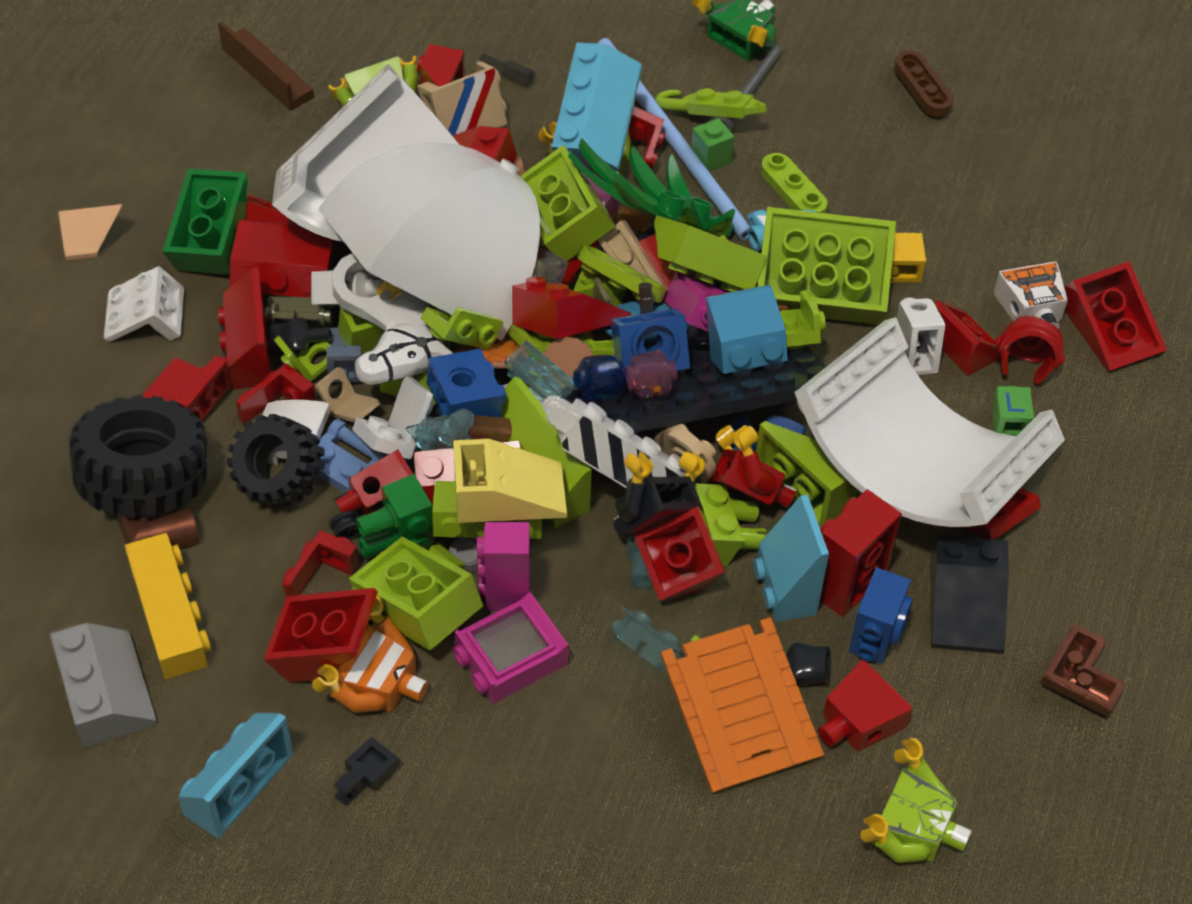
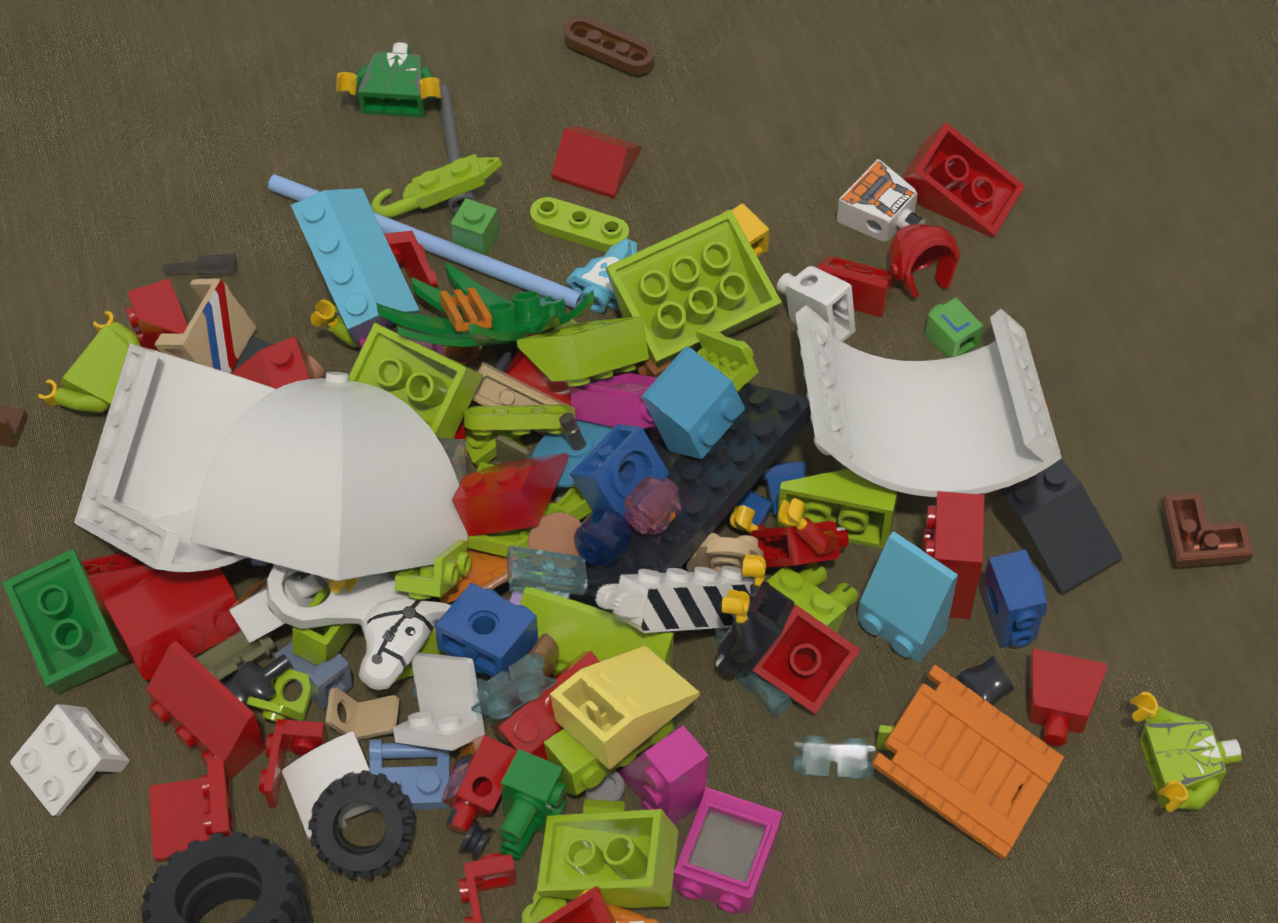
camera: 35 degrees left, 5 degrees up
(653, 179) = (471, 307): none -> orange tile
(843, 150) = (594, 161): none -> red slope

